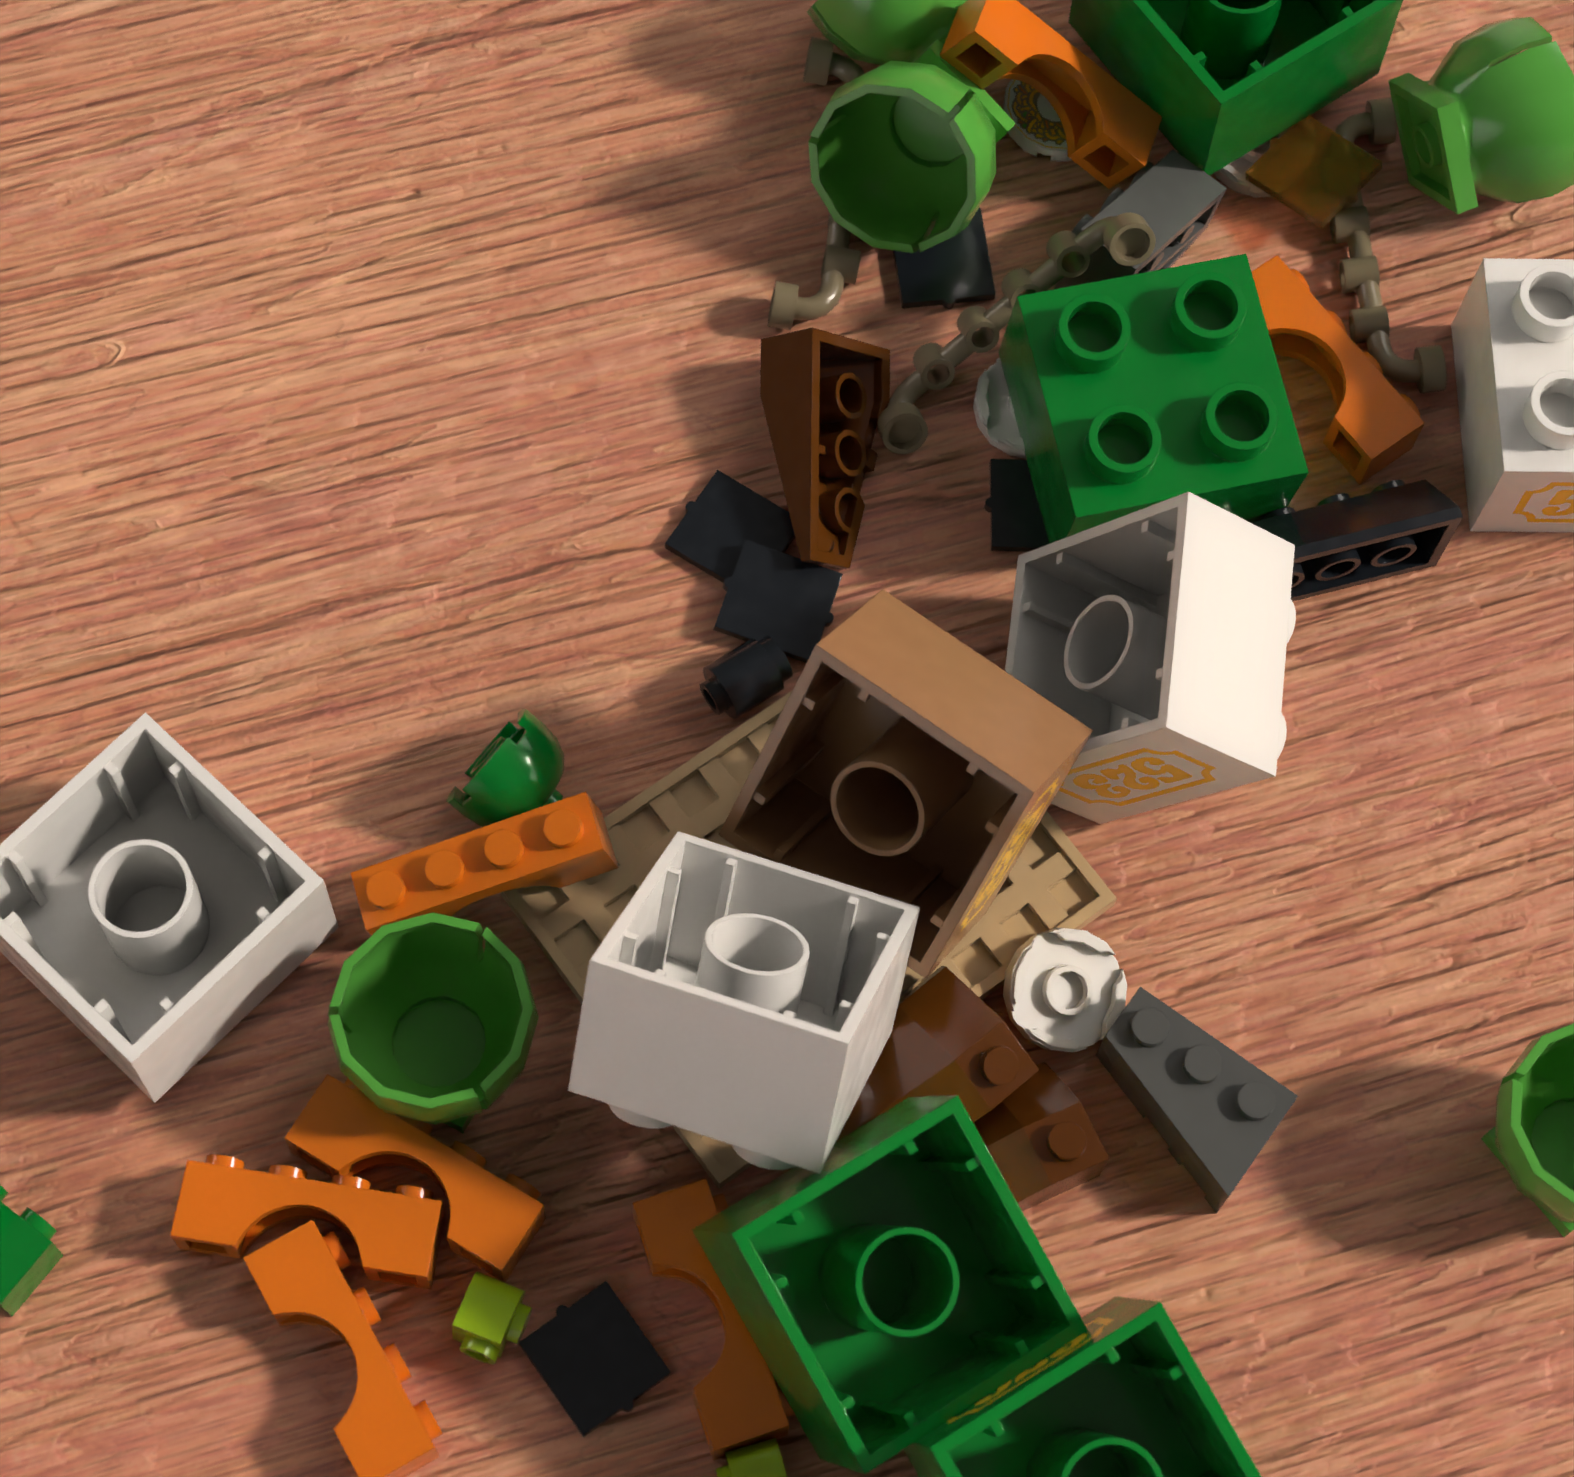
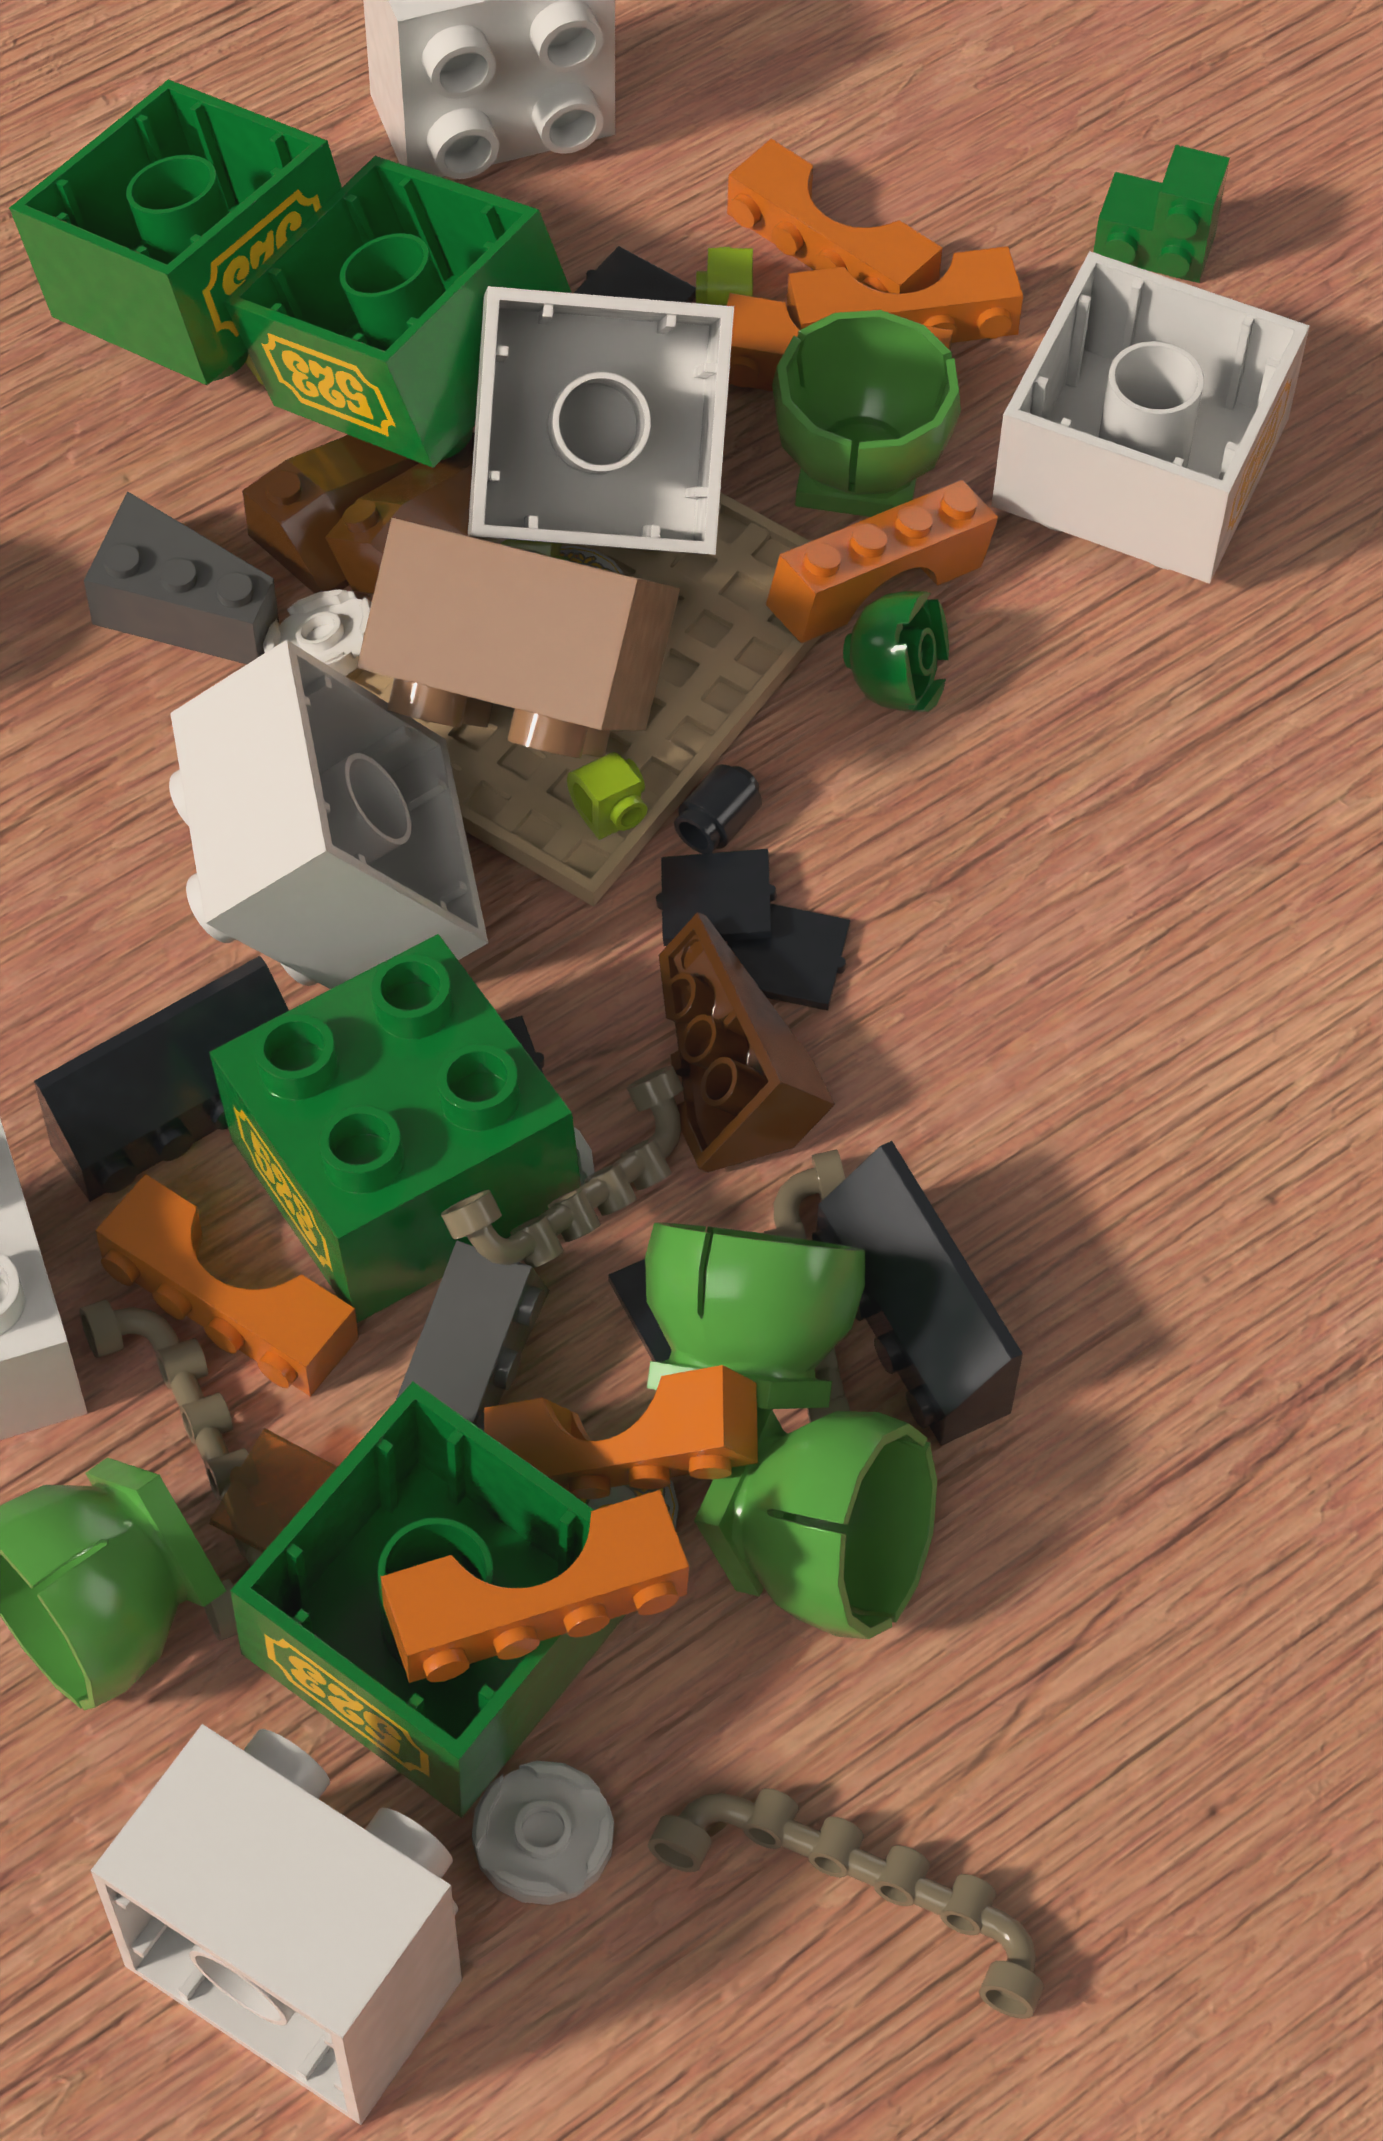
camera: 165 degrees right, 10 degrees down
(761, 165) = (922, 1299): none -> black slope

